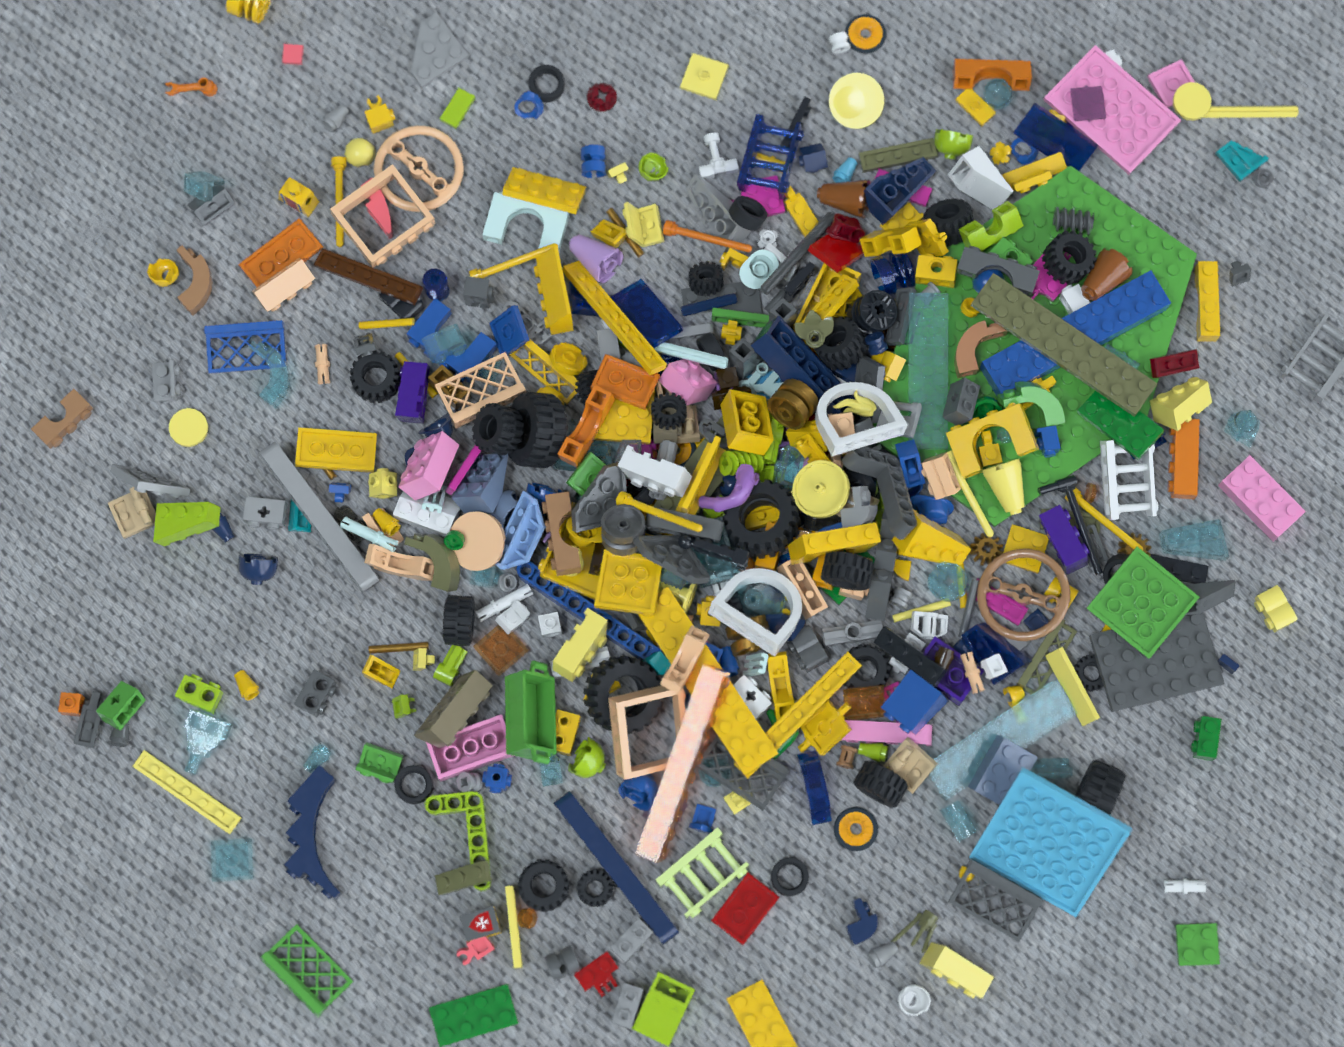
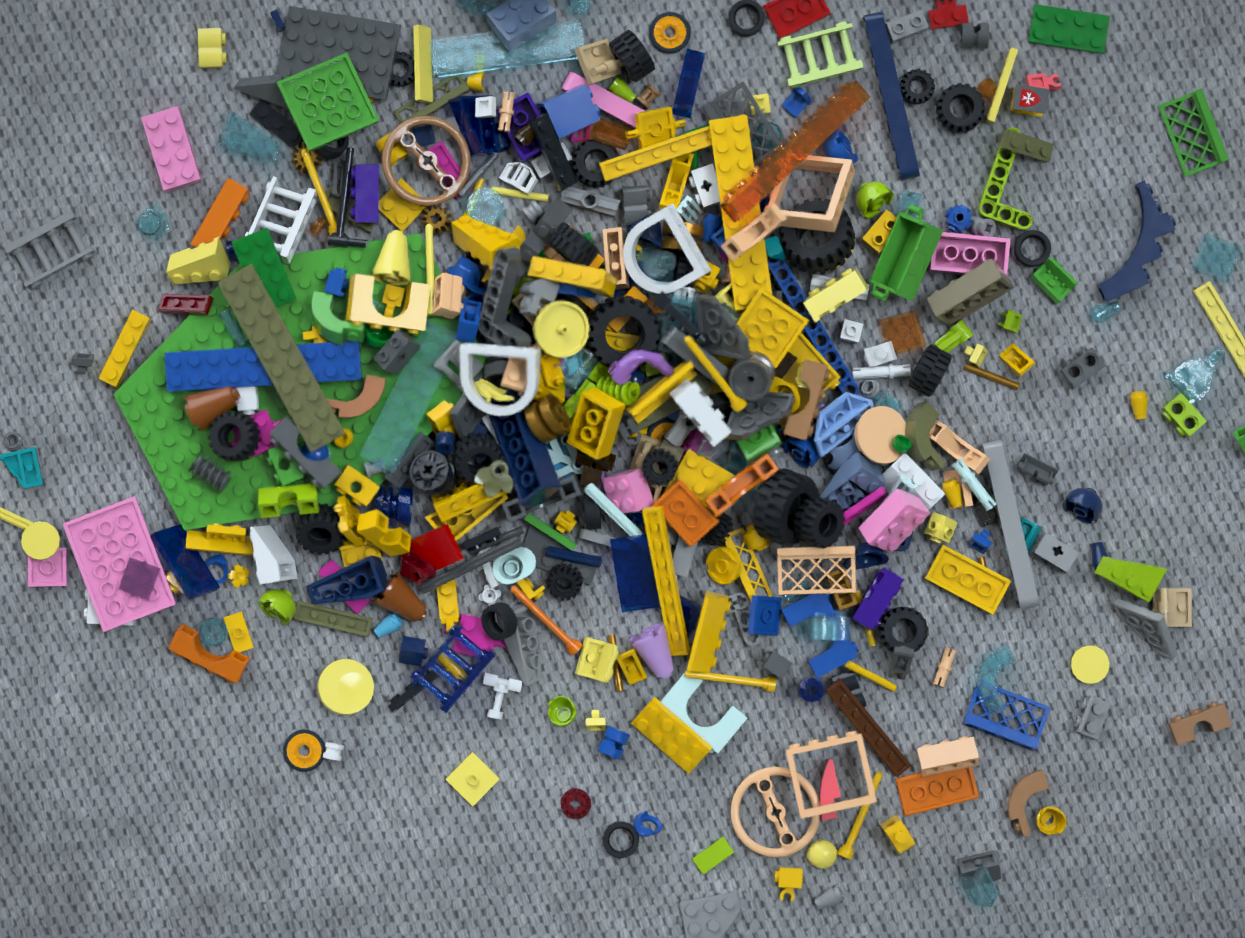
camera: 155 degrees left, 10 degrees up
(324, 580) = (1033, 466): none -> dark grey hinge

